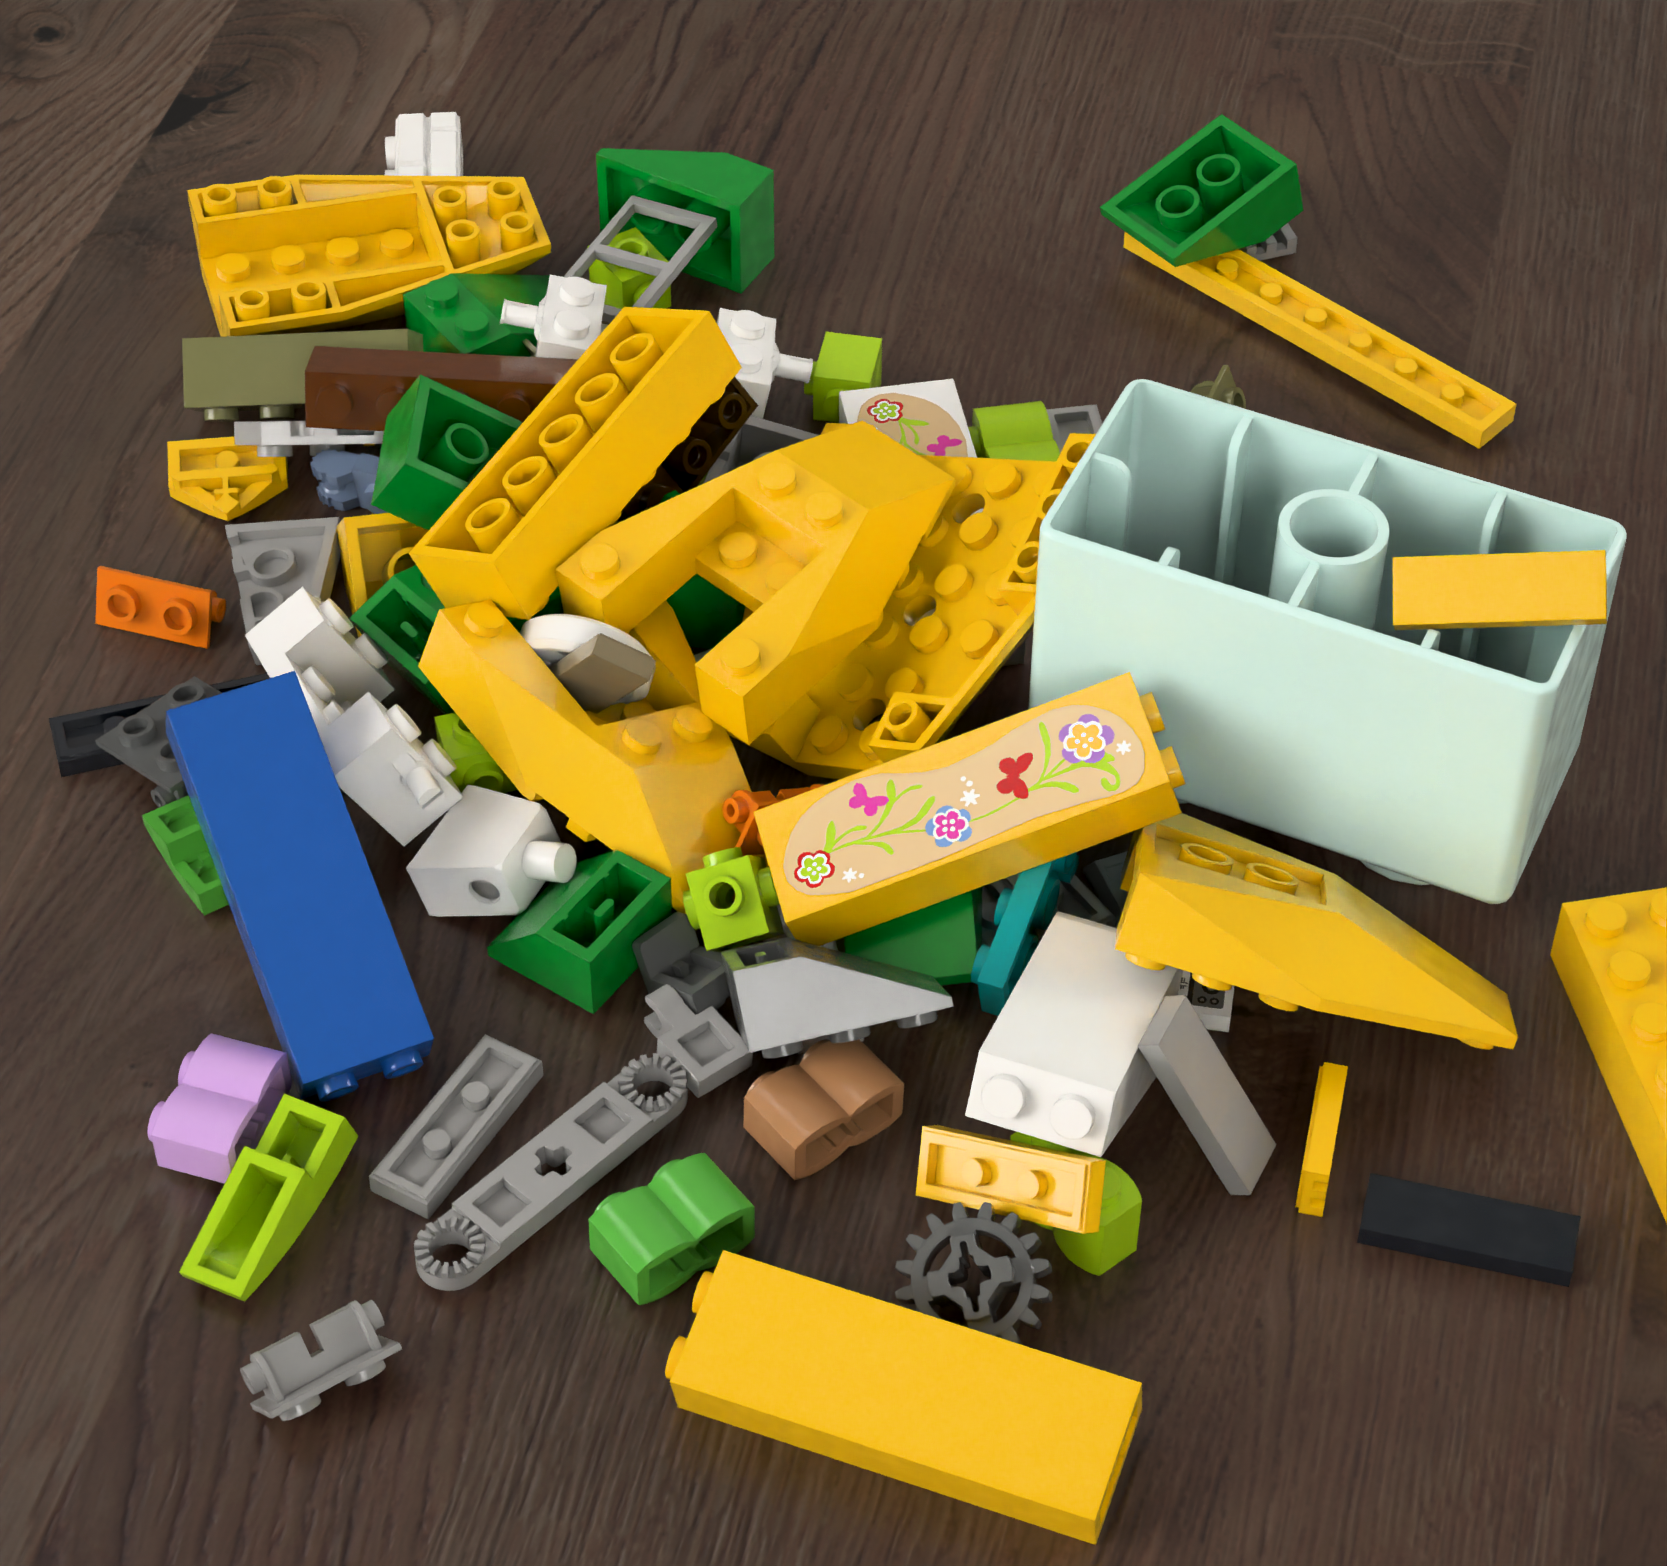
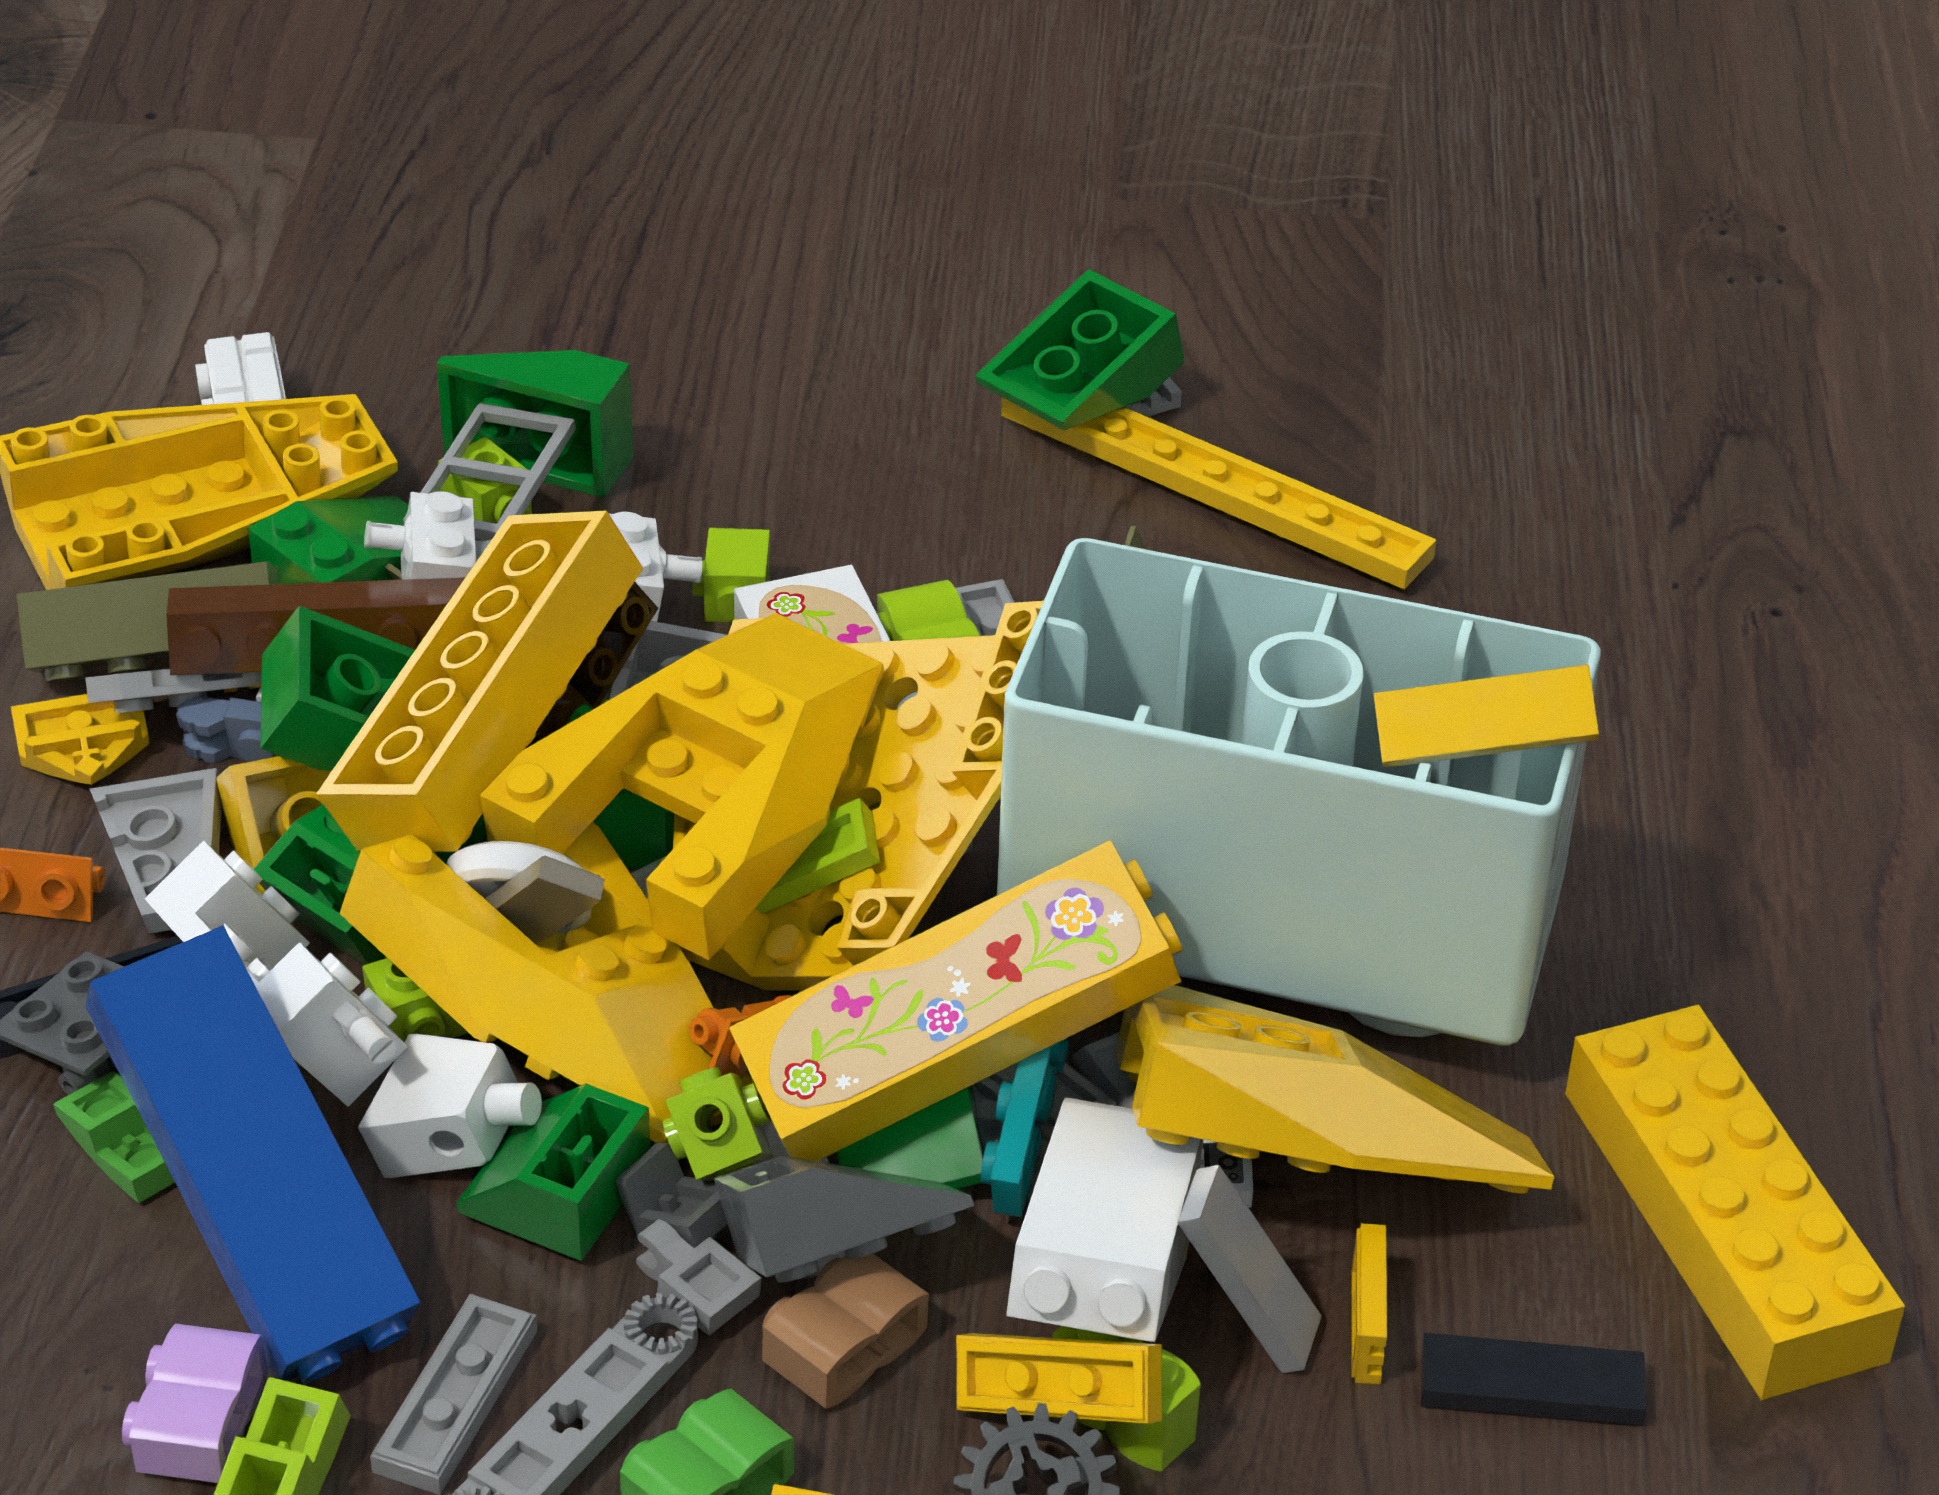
camera: 10 degrees left, 5 degrees down
(885, 654) = (837, 852): none -> lime tile

